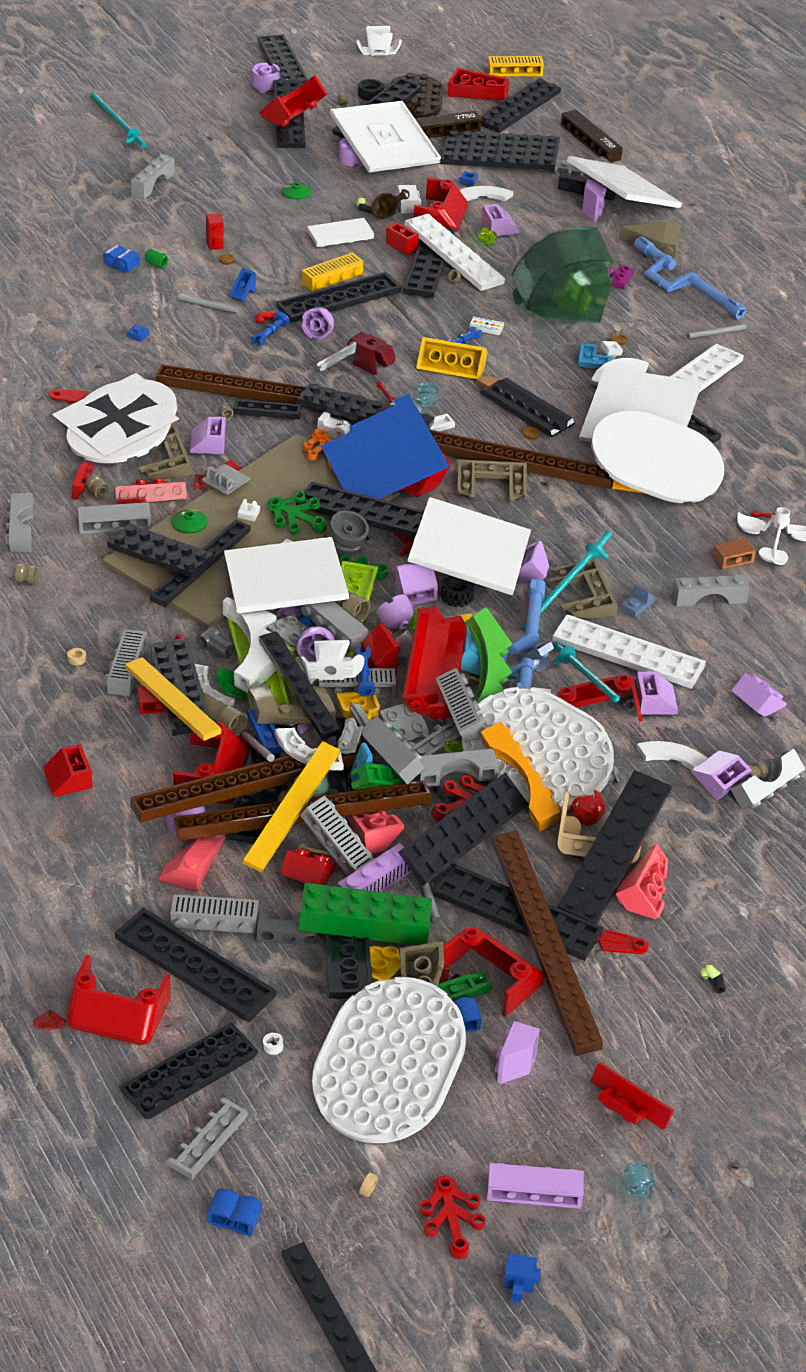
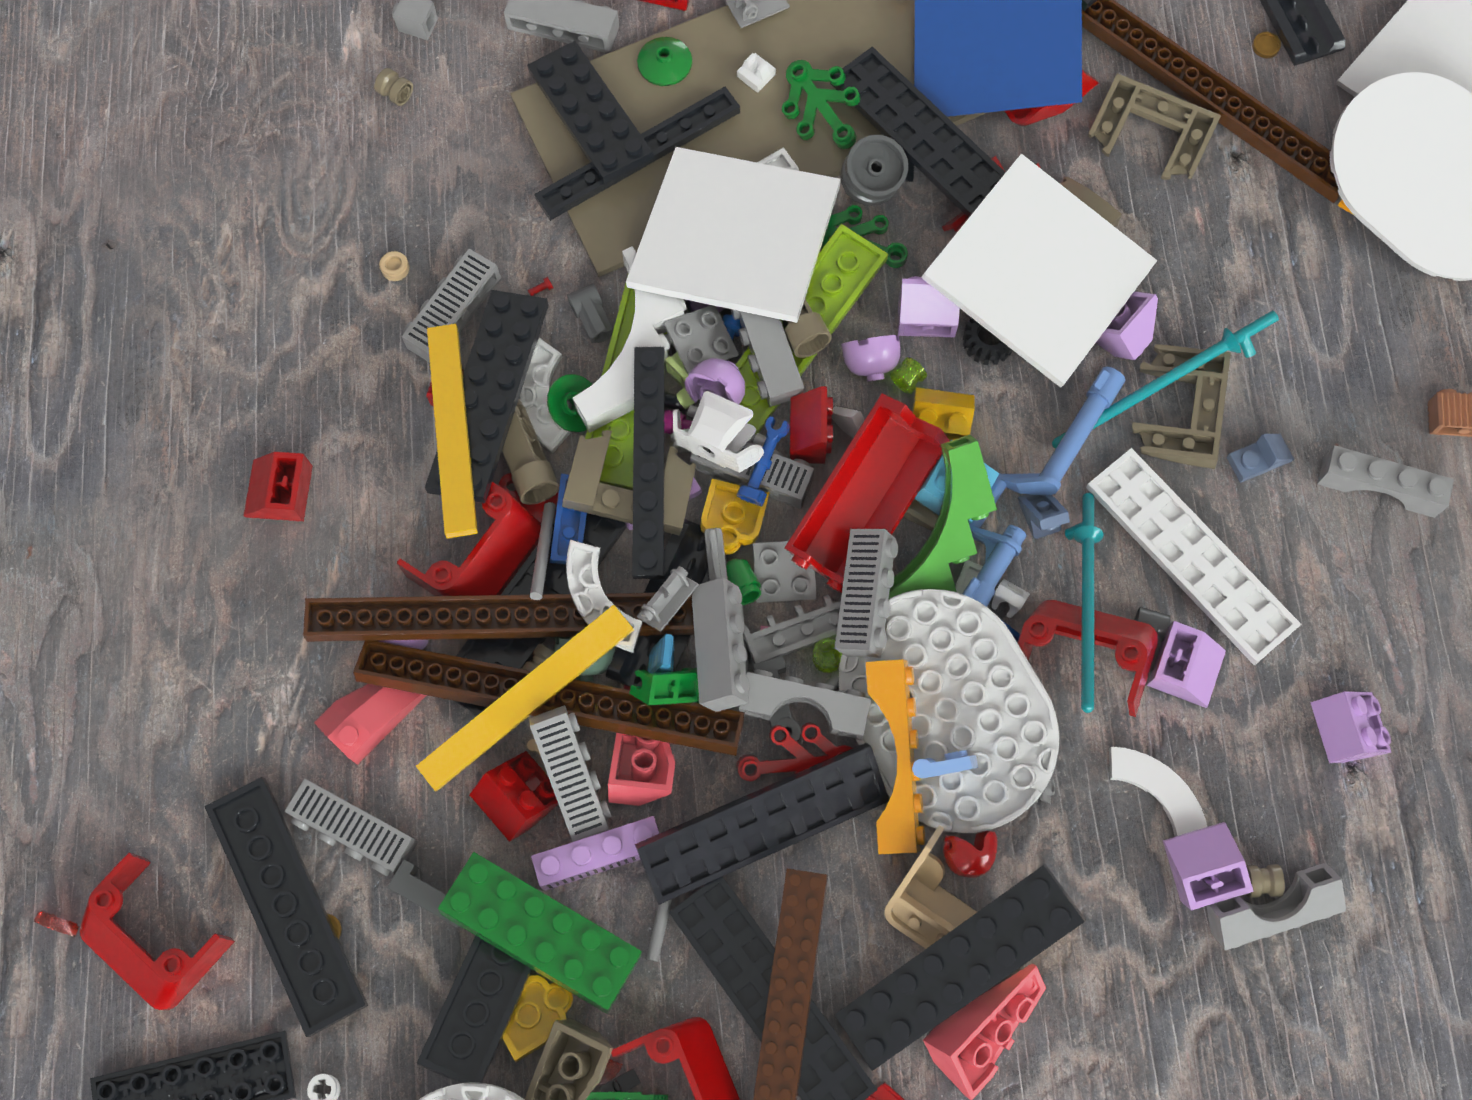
camera: 30 degrees right, 30 degrees up
(559, 760) = (953, 763): none -> light blue plate

